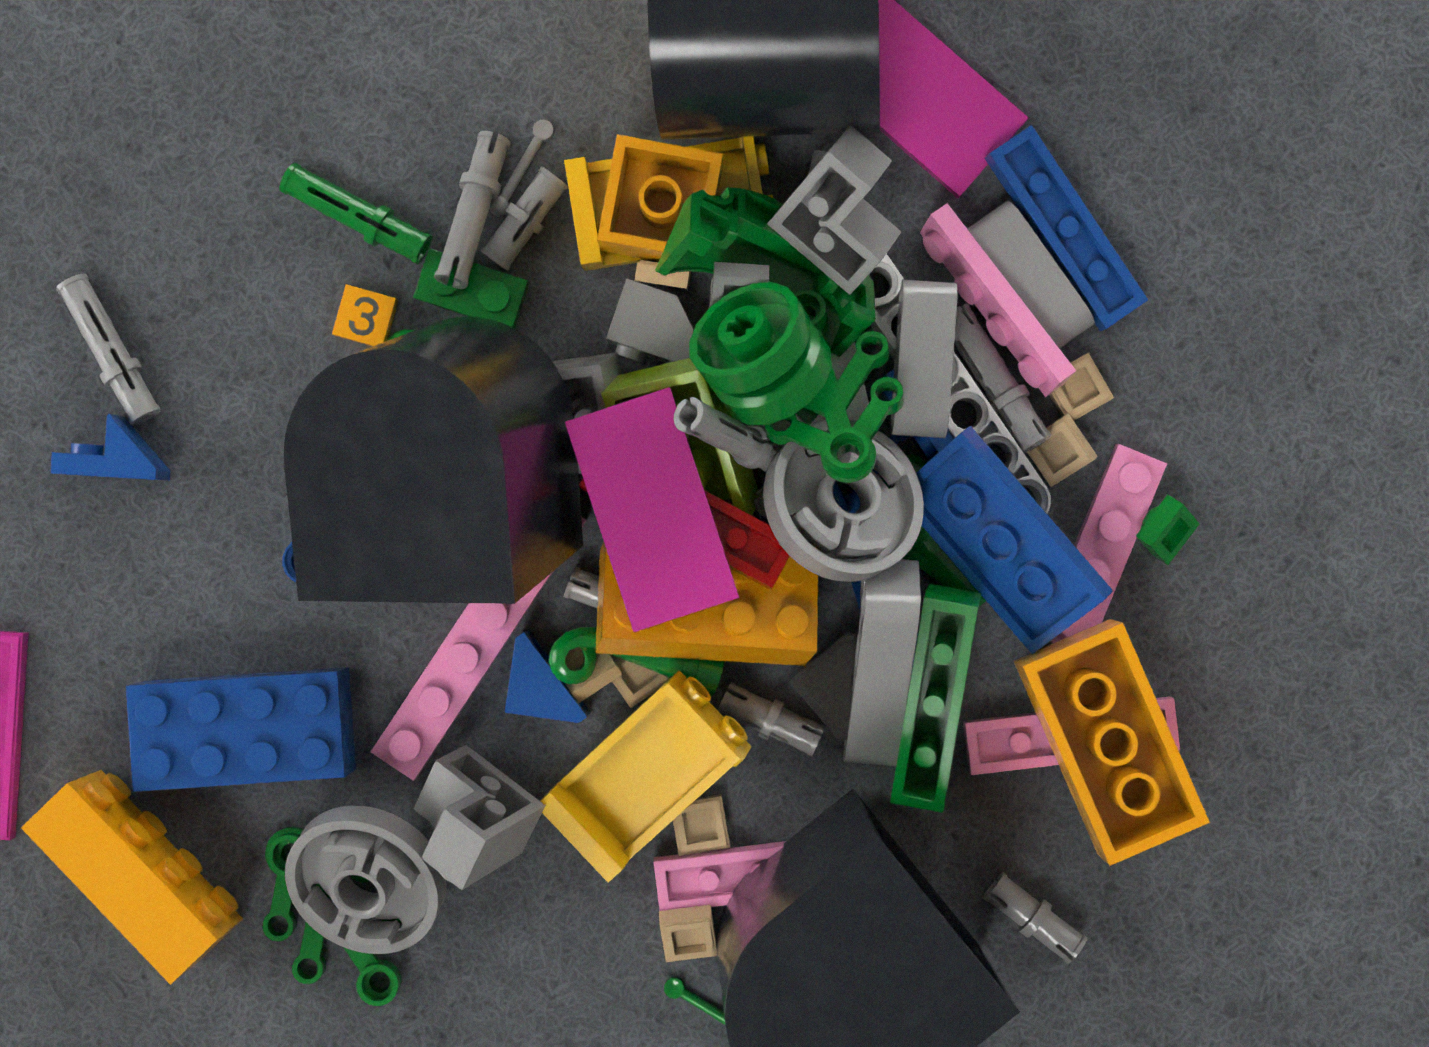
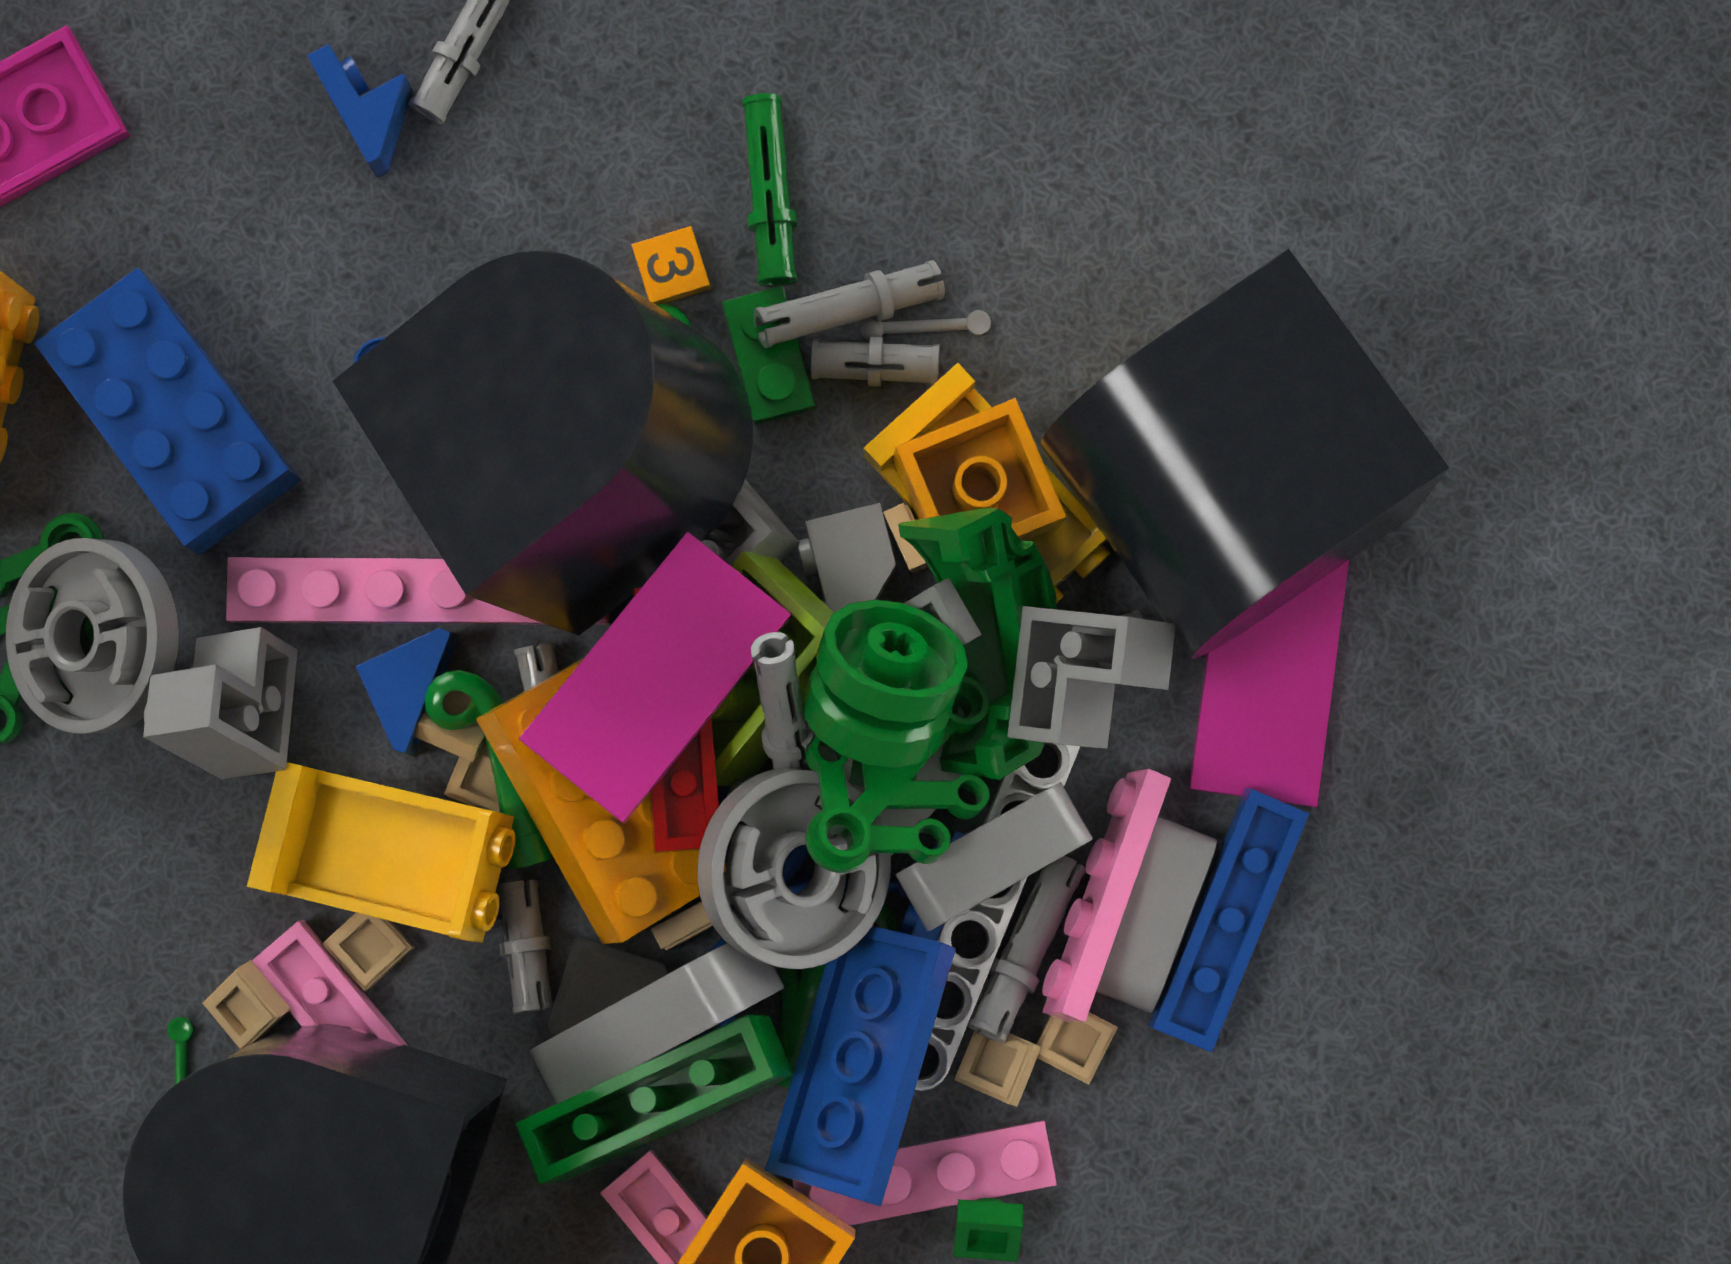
camera: 55 degrees right, 5 degrees down
(829, 602) = (682, 927): none -> tan tile

